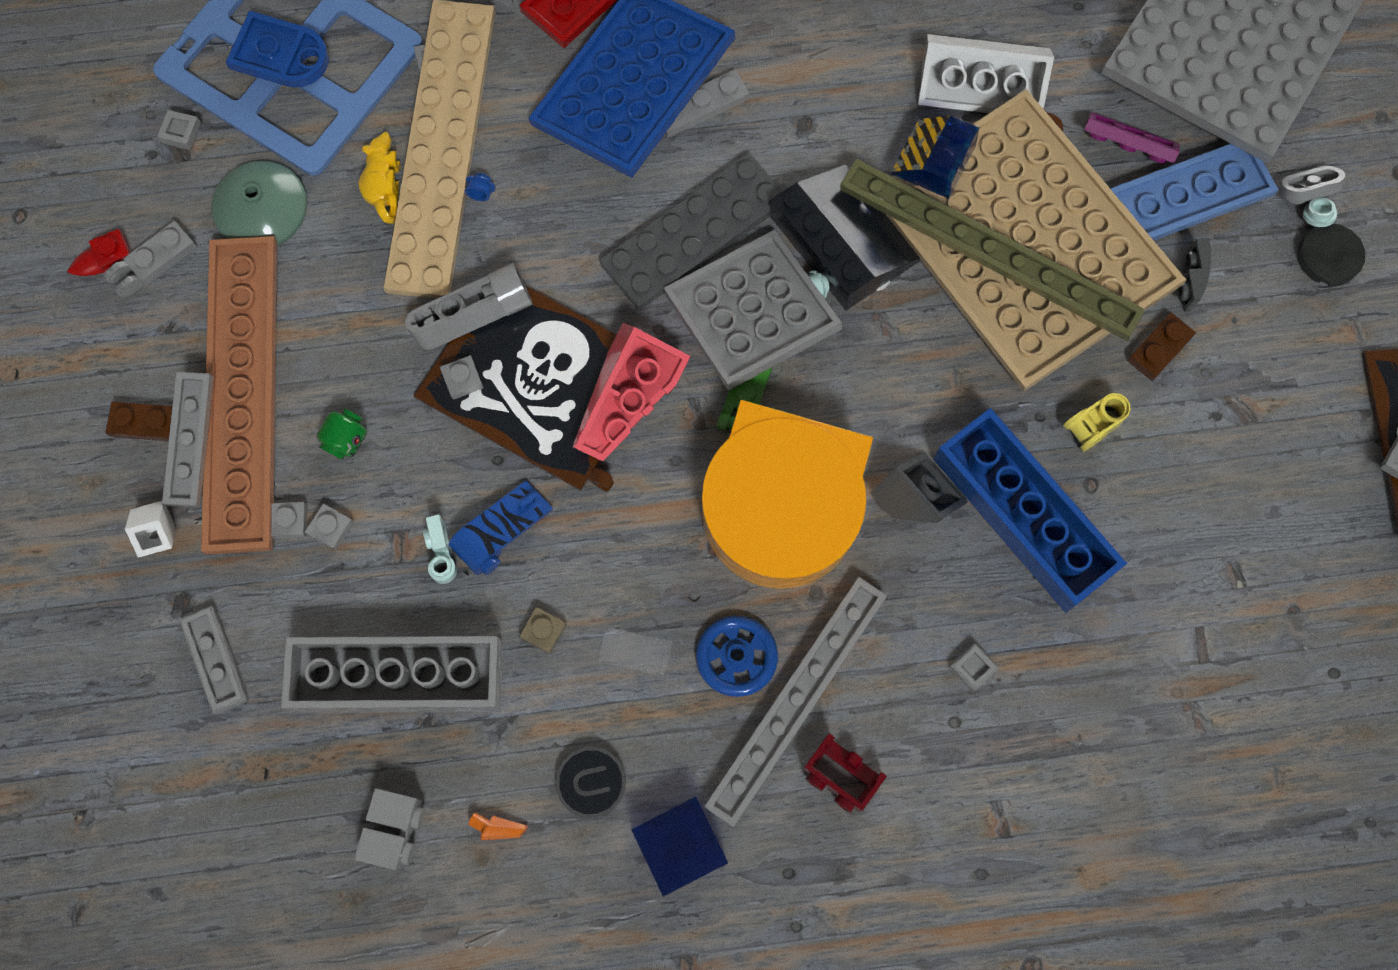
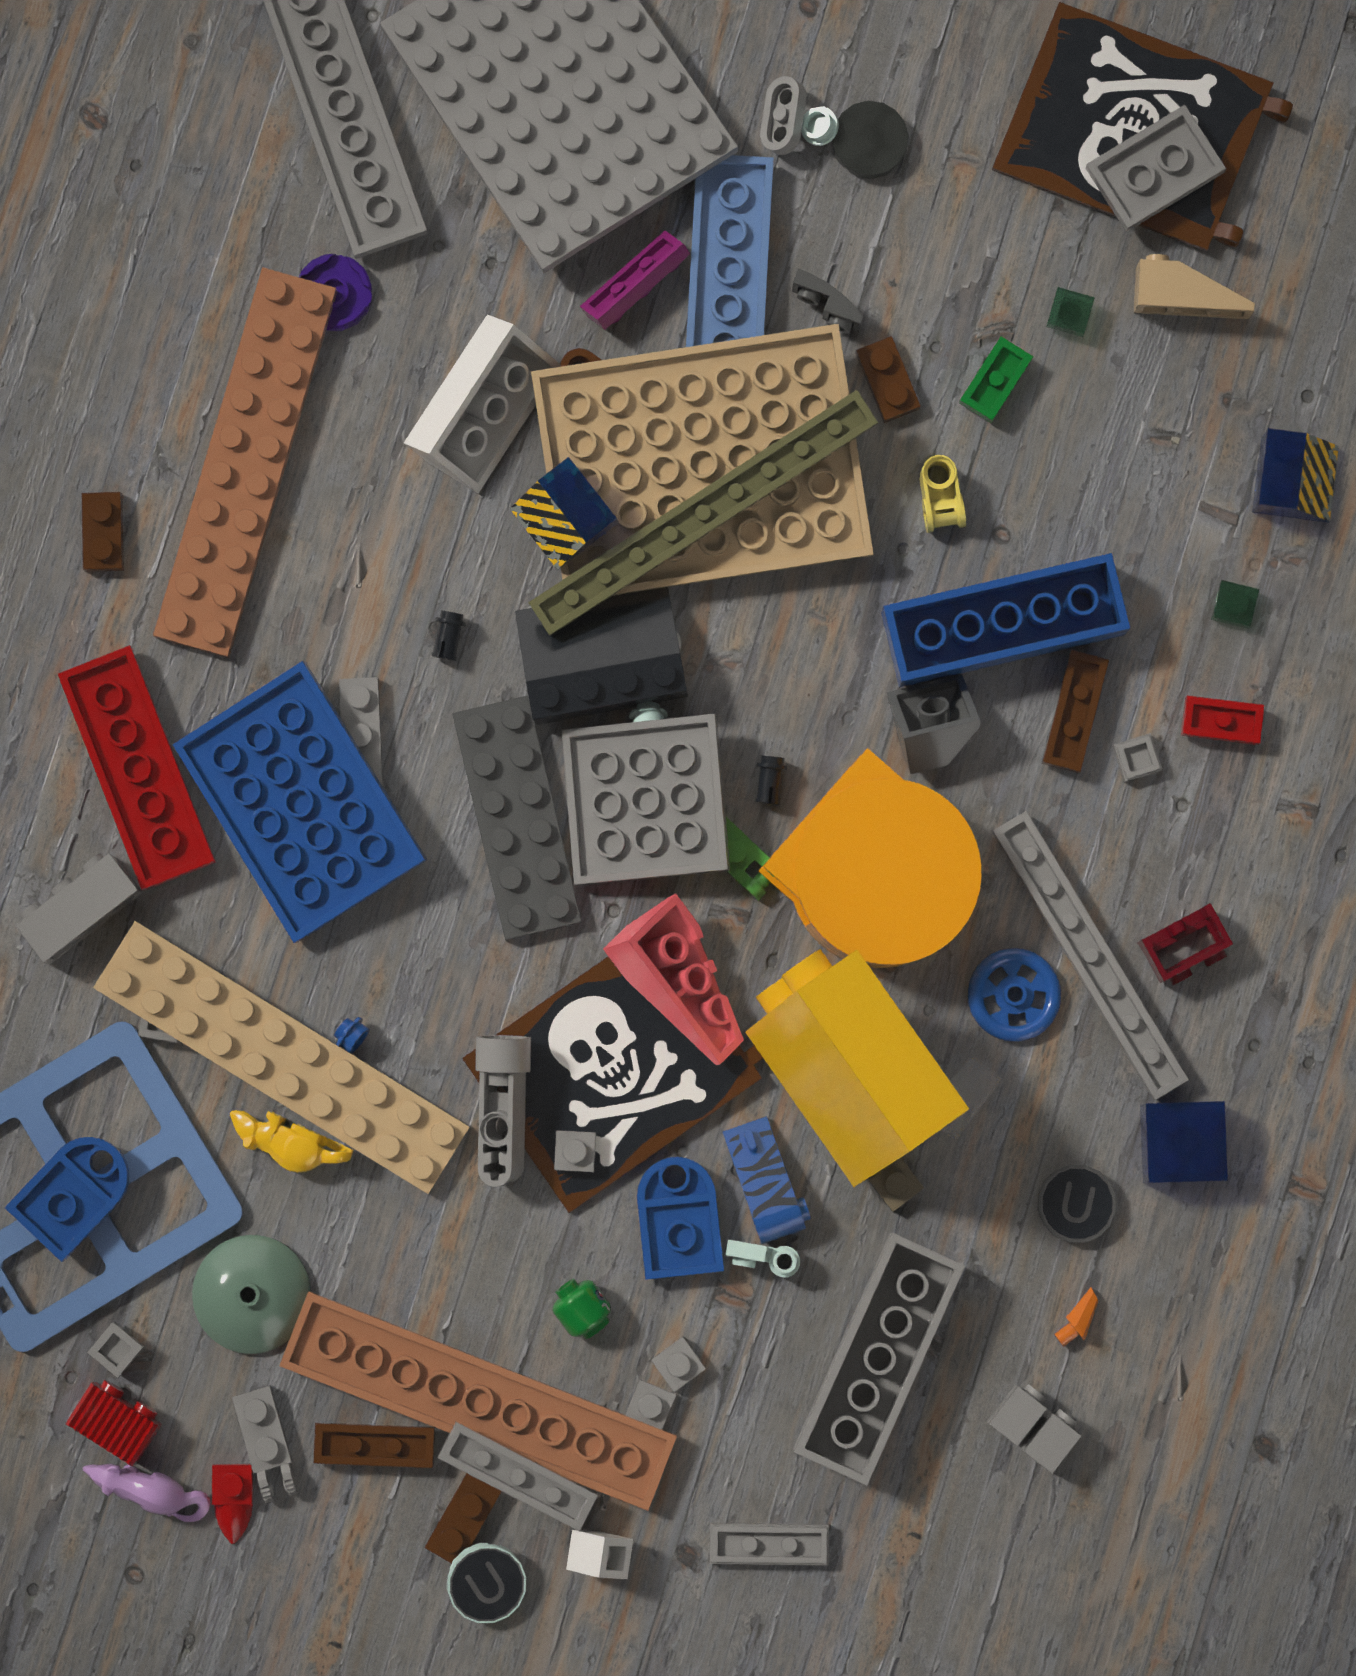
camera: 65 degrees left, 10 degrees up
(81, 194) = (152, 1492): none -> lavender animal
(99, 457) = (486, 1583): none -> black tile
(123, 150) = (114, 1422): none -> red brick
(176, 330) = (374, 1445): none -> reddish brown plate
(439, 478) = (679, 1224): none -> blue plate
(617, 537) = (852, 1063): none -> yellow brick
(804, 126) = (448, 635): none -> black pin
(815, 394) = (770, 779): none -> black pin
(985, 600) = (1075, 711): none -> reddish brown plate
(1040, 721) = (1222, 720): none -> red plate
(1137, 689) = (1235, 604): none -> clear green plate
(1208, 423) = (996, 379): none -> green plate
(1268, 690) = (1295, 476): none -> clear blue slope
(1292, 455) = (1070, 312): none -> clear green plate
(1360, 533) = (1179, 290): none -> tan slope

